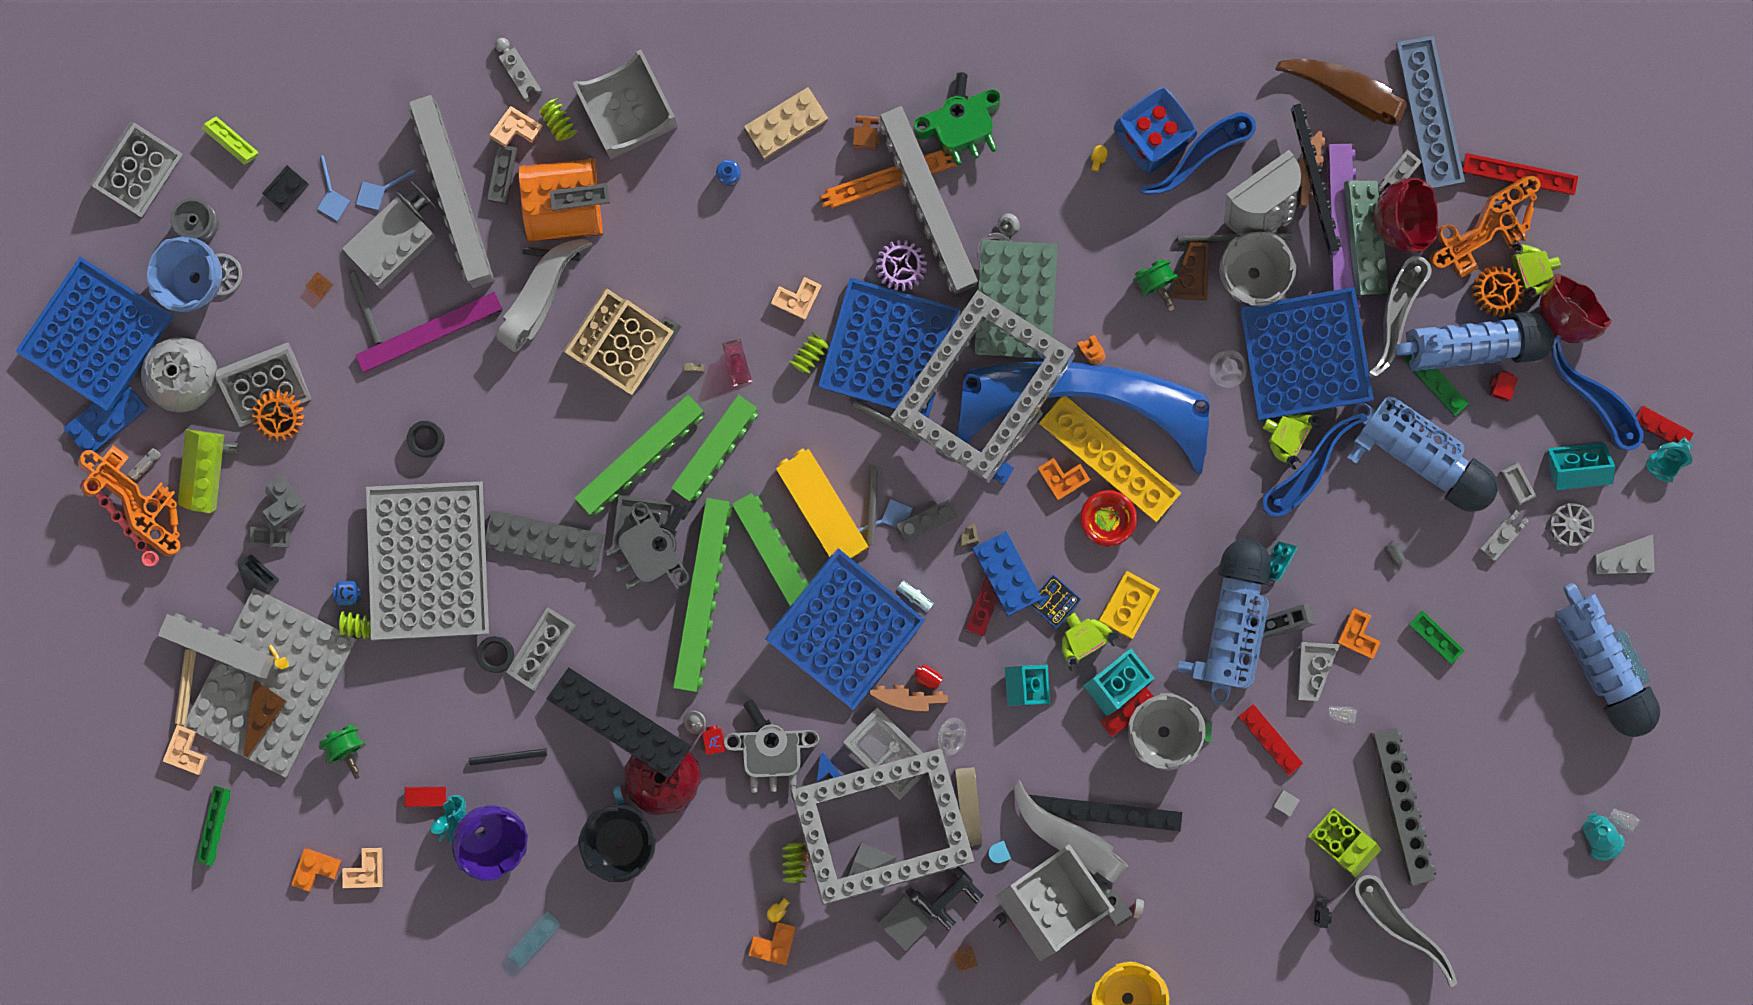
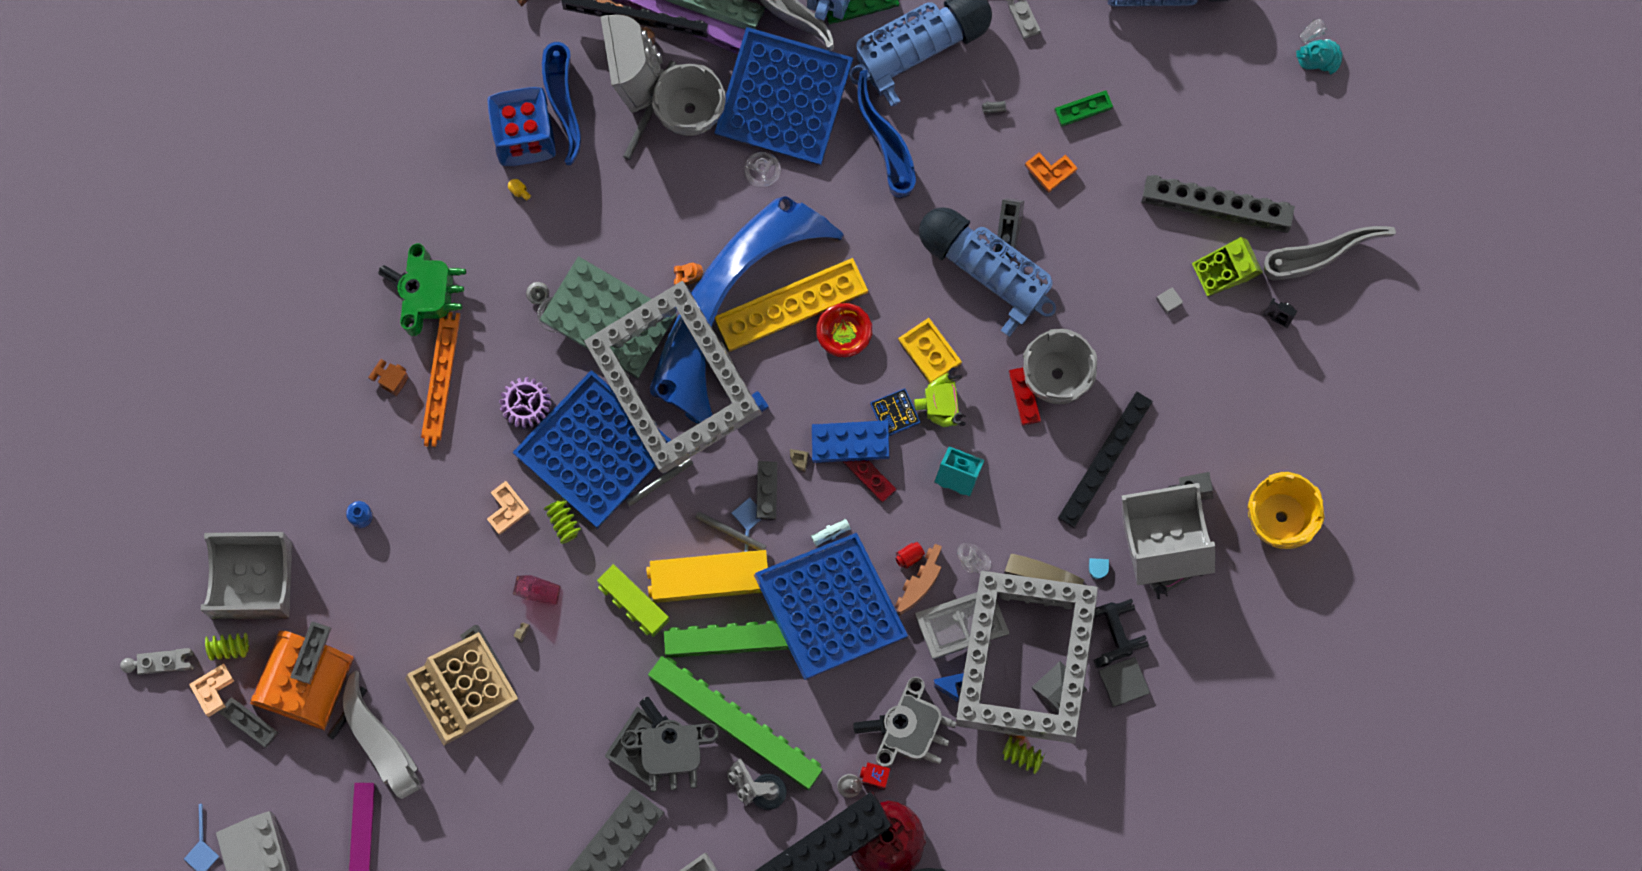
camera: 65 degrees left, 10 degrees down
(417, 200) = (230, 811): dark grey piece -> none
(452, 193) = (239, 775): light grey brick -> none
(639, 455) = (577, 719): bright green brick -> none
(653, 651) = (766, 791): none -> plate
(714, 449) = (606, 648): bright green brick -> none
(767, 451) = (633, 600): none -> lime brick
(777, 911) = (1060, 792): yellow cylinder -> none
(778, 948) = (1095, 810): orange plate -> none
(786, 123) = (341, 443): tan plate -> none
(928, 200) = (479, 349): light grey brick -> none
(965, 959) = (1181, 643): clear orange tile -> none
(1061, 483) = (792, 357): orange plate -> none
(1090, 849) = (1109, 501): light grey animal -> none
(1118, 682) = (995, 391): teal slope -> none
(1138, 908) = (1203, 467): light grey tile -> none
(1156, 280) = (654, 190): green wheel -> none
(1193, 274) = (665, 159): reddish brown wing -> none
(1270, 739) = (1107, 287): red plate -> none
(1280, 558) = (952, 198): teal hinge -> none
(1289, 435) = (848, 145): lime torso -> none
(1313, 668) = (1060, 220): light grey wing -> none
(1343, 714) = (1114, 215): clear cone -> none

